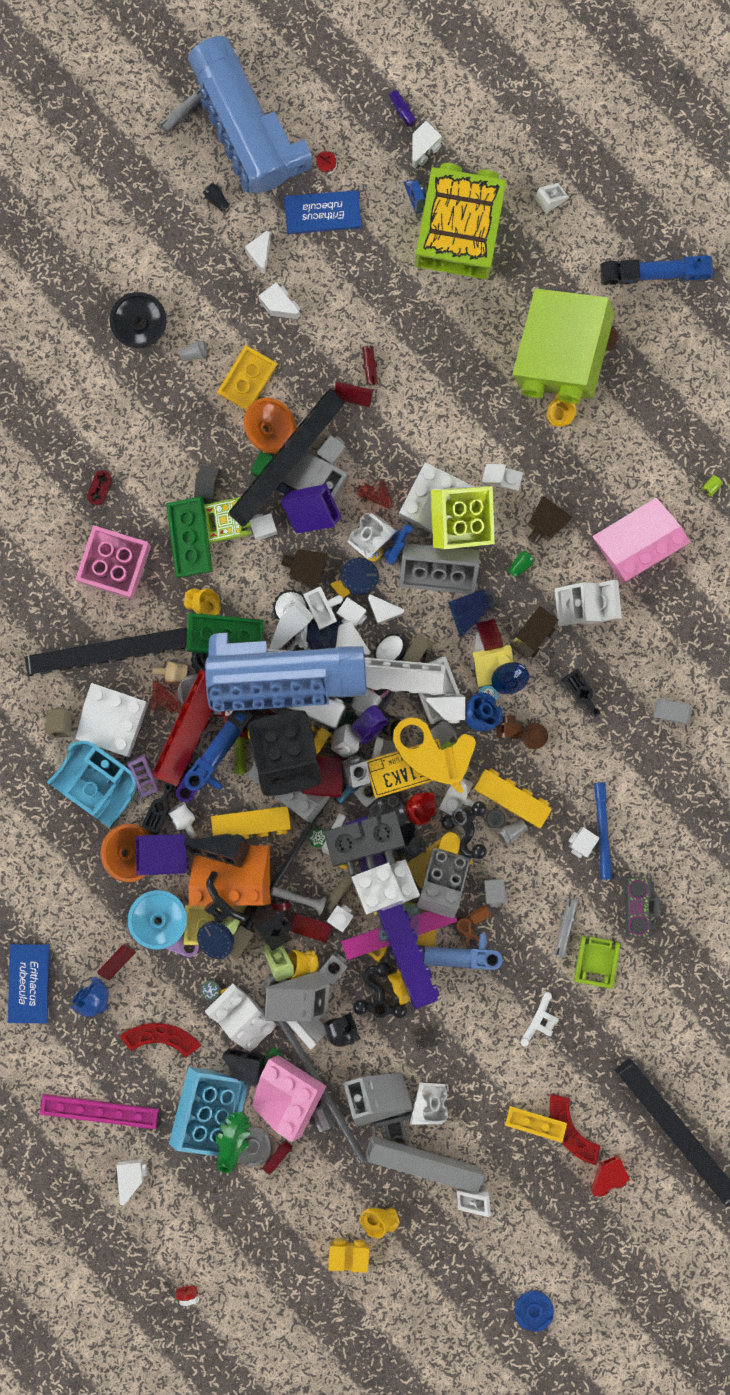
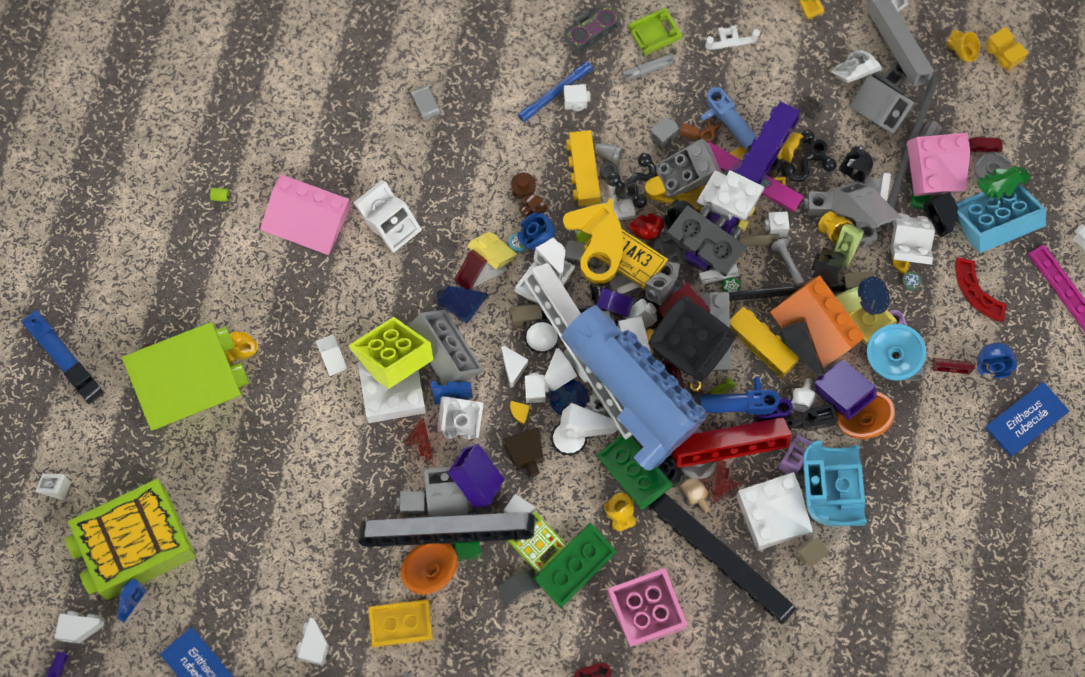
camera: 125 degrees left, 15 degrees down
(218, 902) = (848, 308): black piece -> none
(281, 905) = (806, 273): dark red tile -> none
(311, 927) = (801, 243): dark red slope -> none
(321, 607) = (550, 411): white plate -> none
(354, 394) = (349, 521): dark red slope -> none
(359, 576) = (500, 404): dark blue tile -> none
(369, 365) = (313, 527): dark red pin -> none
(510, 678) = (492, 232): clear blue dish -> none
(521, 563) = (393, 290): green cone -> none
(534, 632) = (445, 230): dark brown brick -> none
(547, 521) = (342, 294): dark brown torso -> none
(574, 683) = (459, 183): black piece -> none

